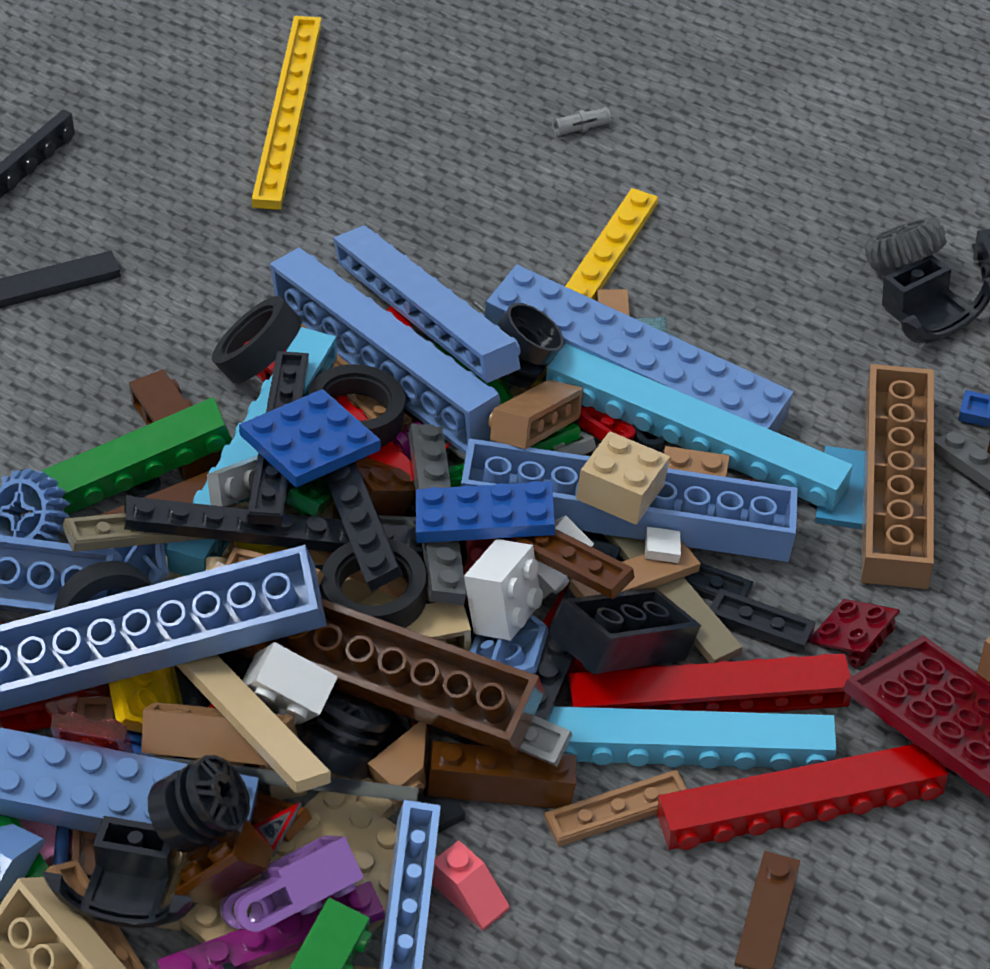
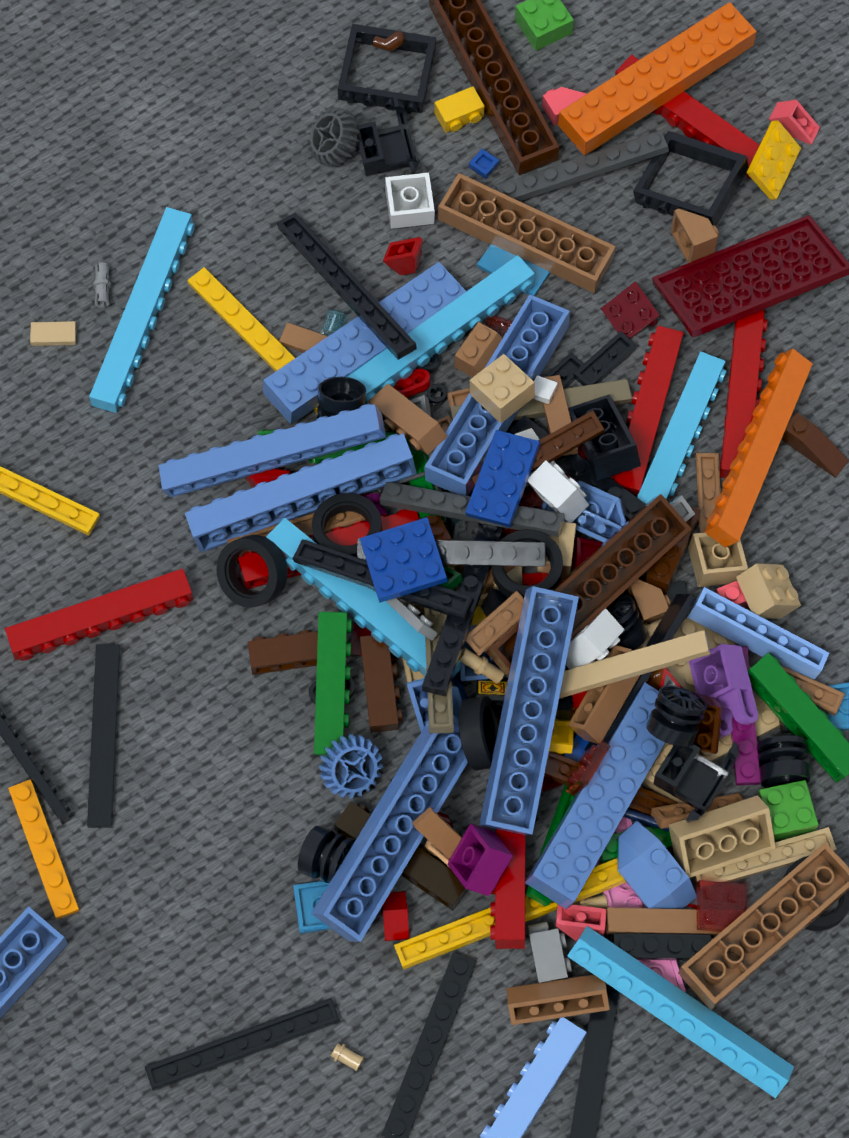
camera: 70 degrees left, 20 degrees up
(151, 242) = (98, 615): none -> red brick
(485, 909) = (768, 590): none -> tan brick
(497, 104) = (53, 333): none -> tan tile
(514, 834) = (715, 563): none -> tan brick
(568, 159) = (141, 310): none -> medium azure brick
(693, 308) = (347, 286): none -> black plate
(714, 823) = (758, 448): none -> orange brick
(783, 362) = (404, 255): none -> red slope
(866, 339) = (409, 200): none -> white brick

